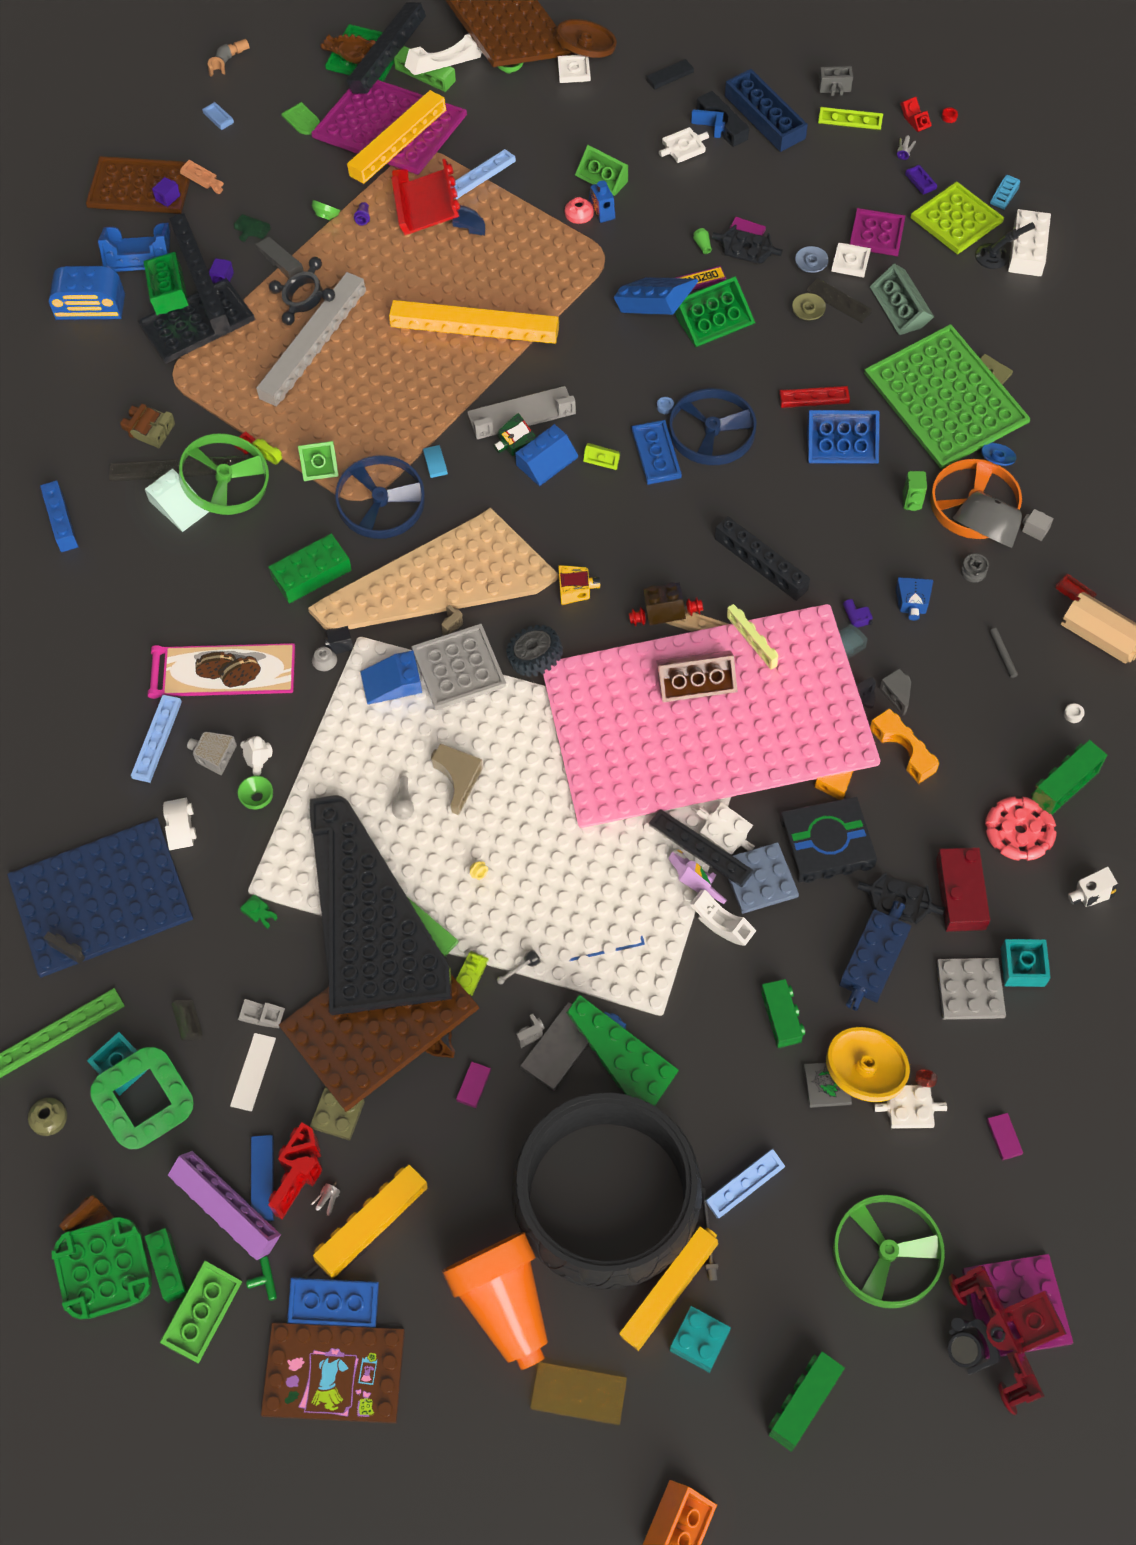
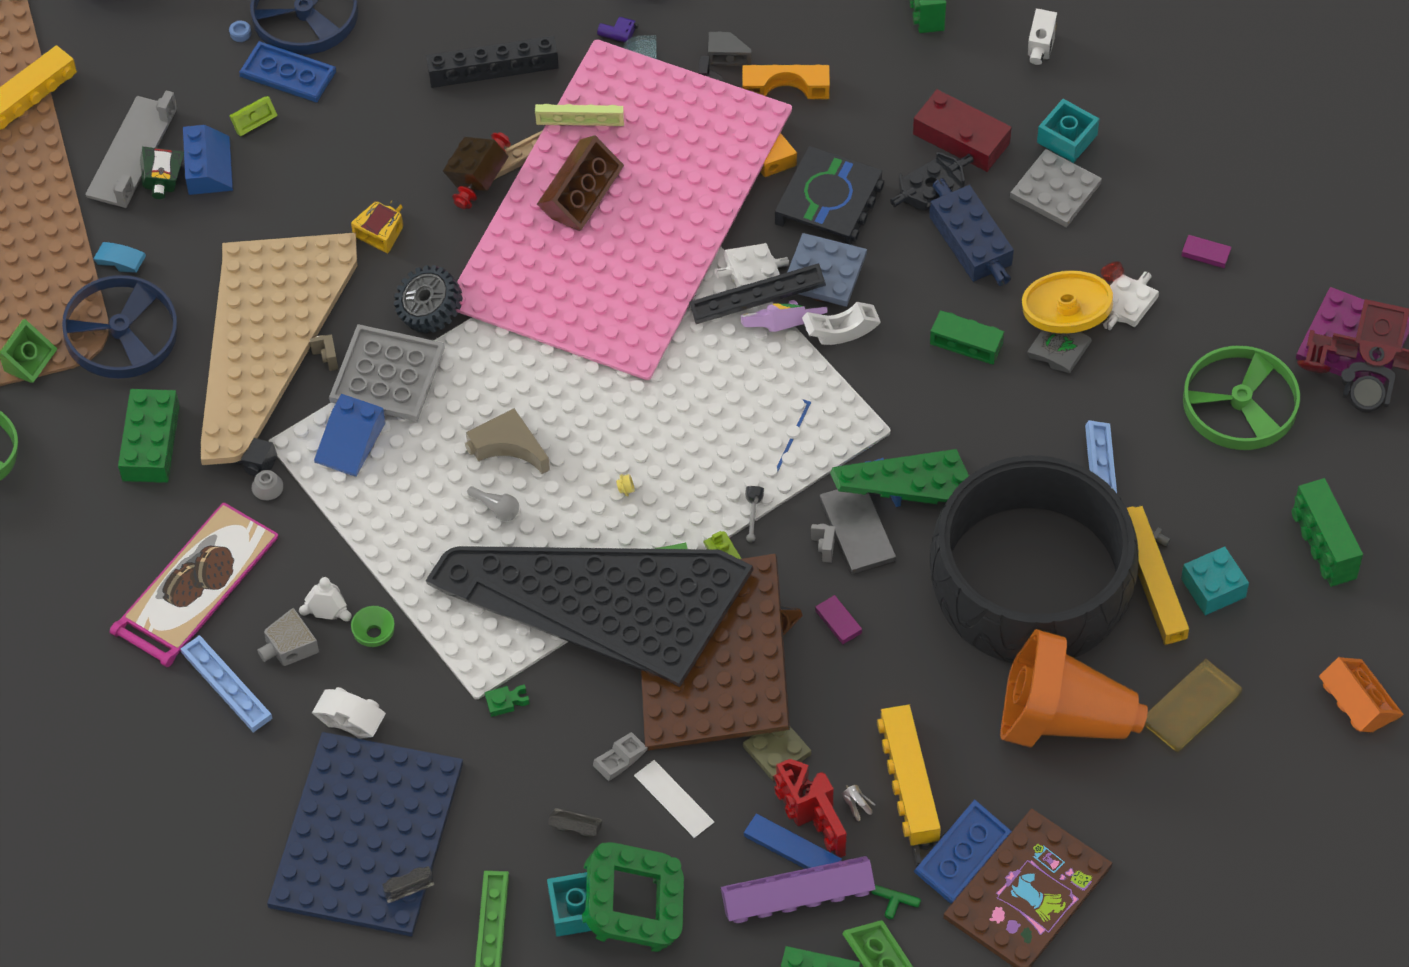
camera: 55 degrees left, 5 degrees down
(1020, 817) = (940, 43): coral plate -> none

